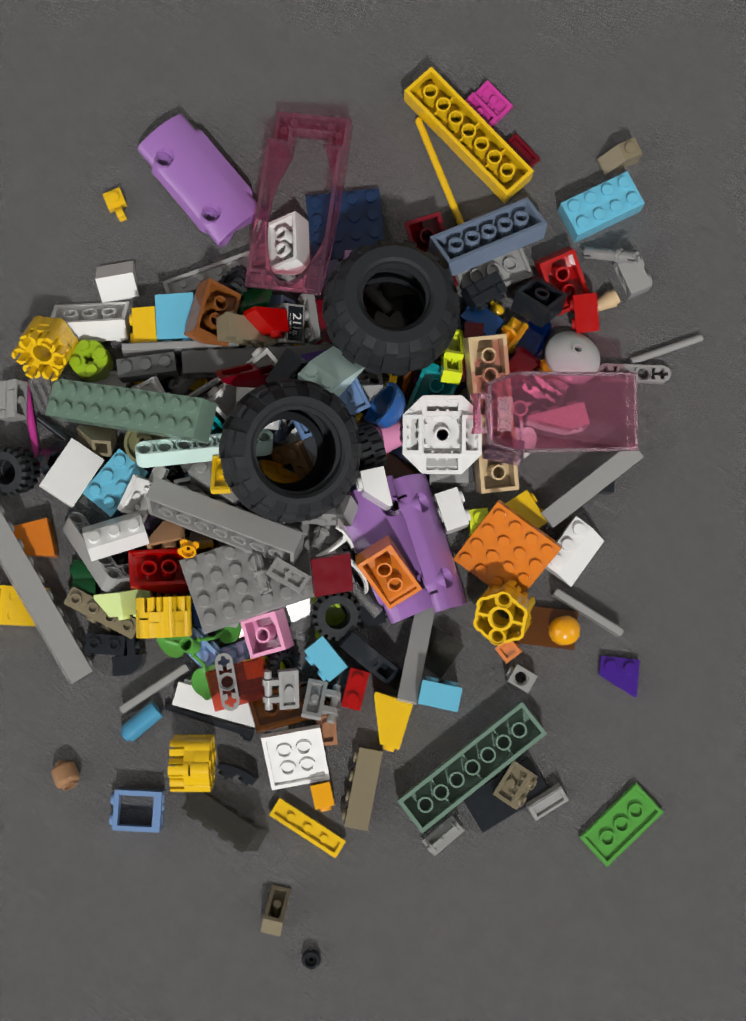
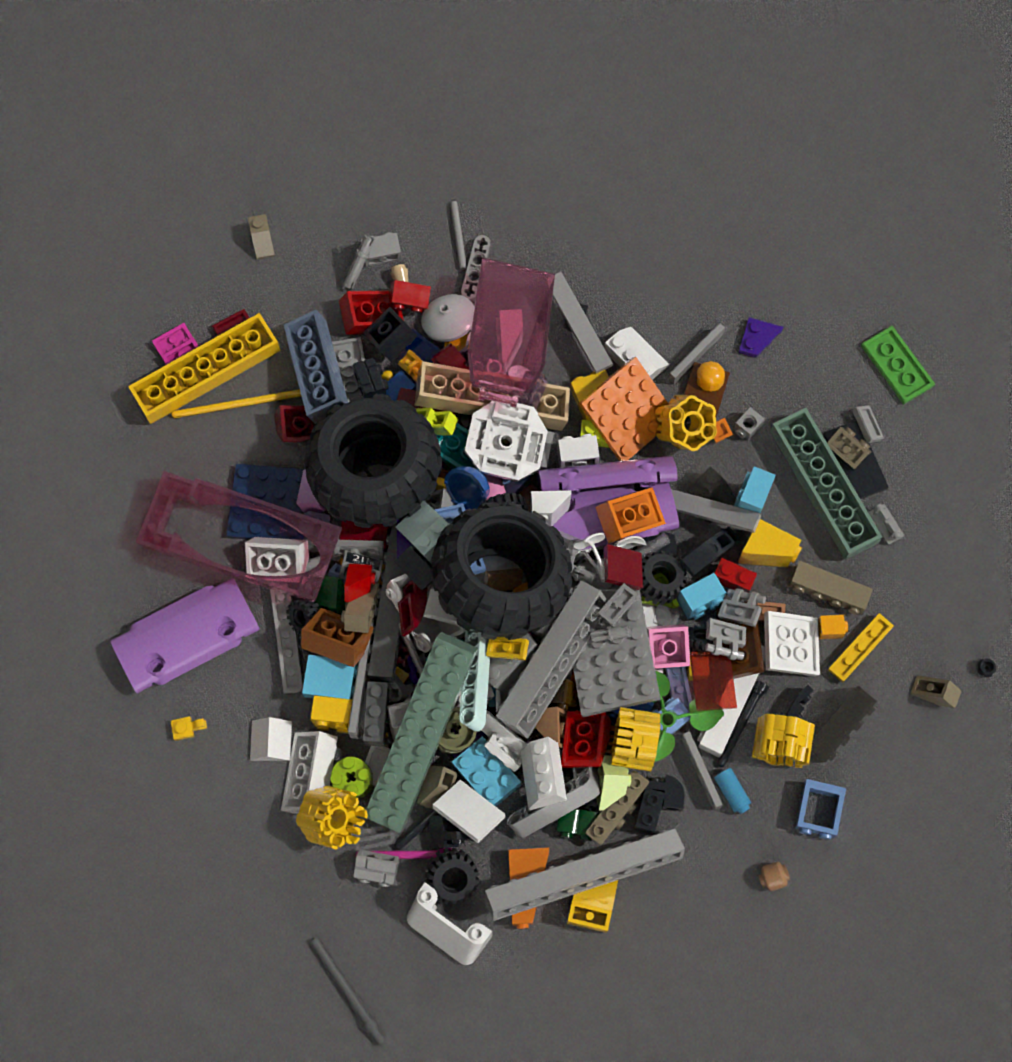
camera: 80 degrees left, 10 degrees down
(188, 552) = (571, 703): light orange plate -> none
(220, 668) = (715, 682): light grey beam -> none
(600, 207) = (307, 263): medium azure brick -> none

